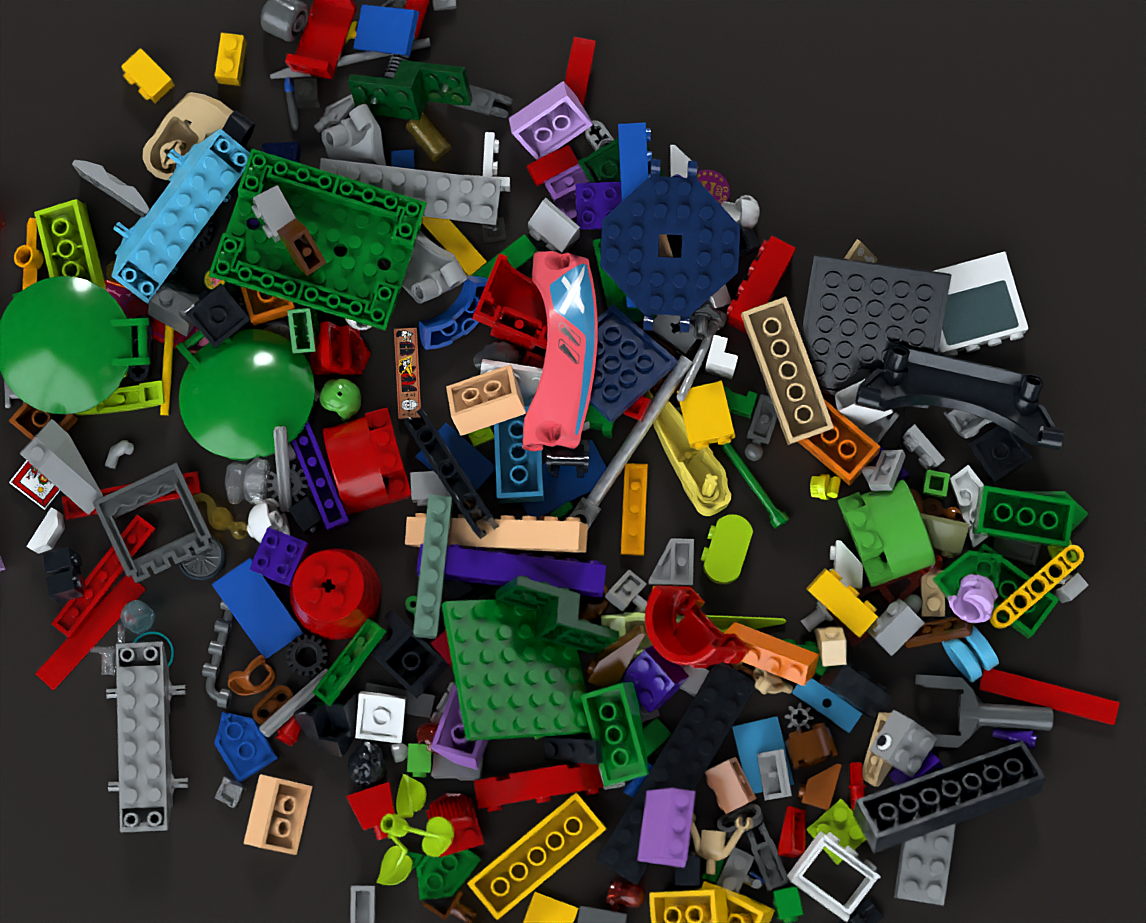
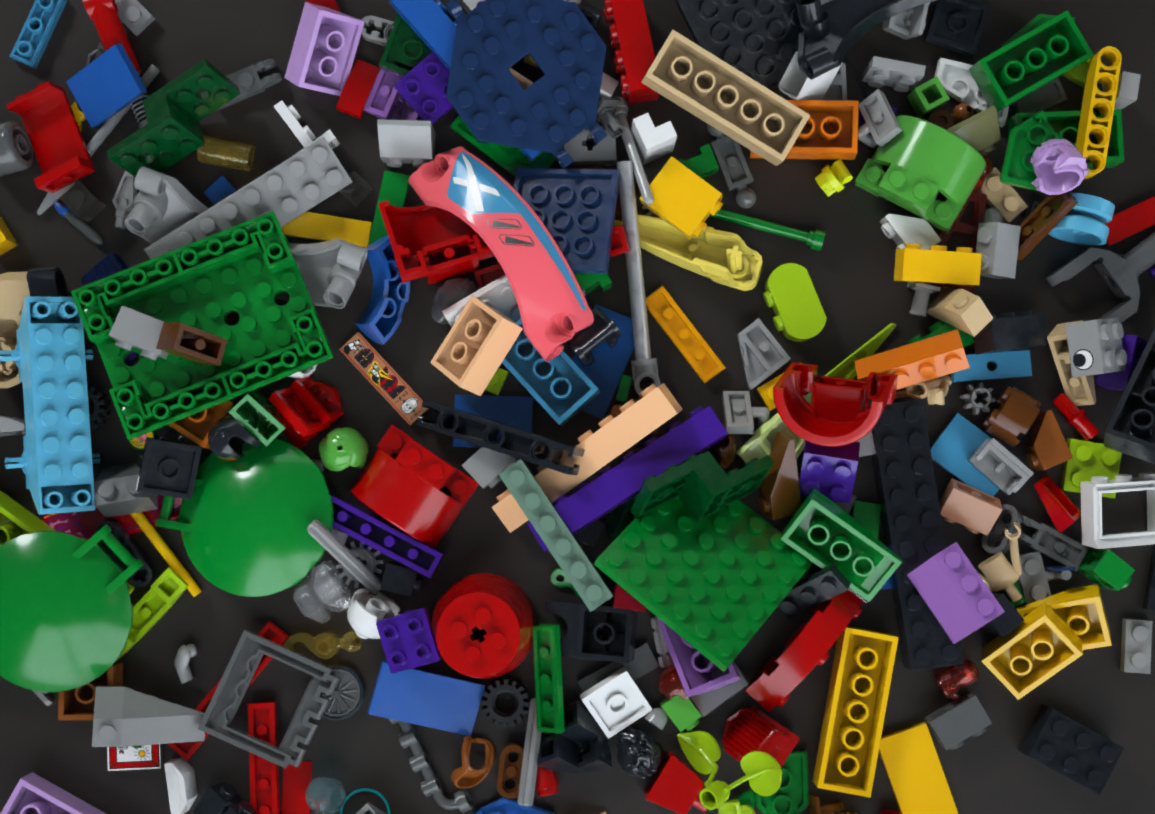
camera: 45 degrees left, 5 degrees up
(273, 326) = (228, 437): none -> black helmet

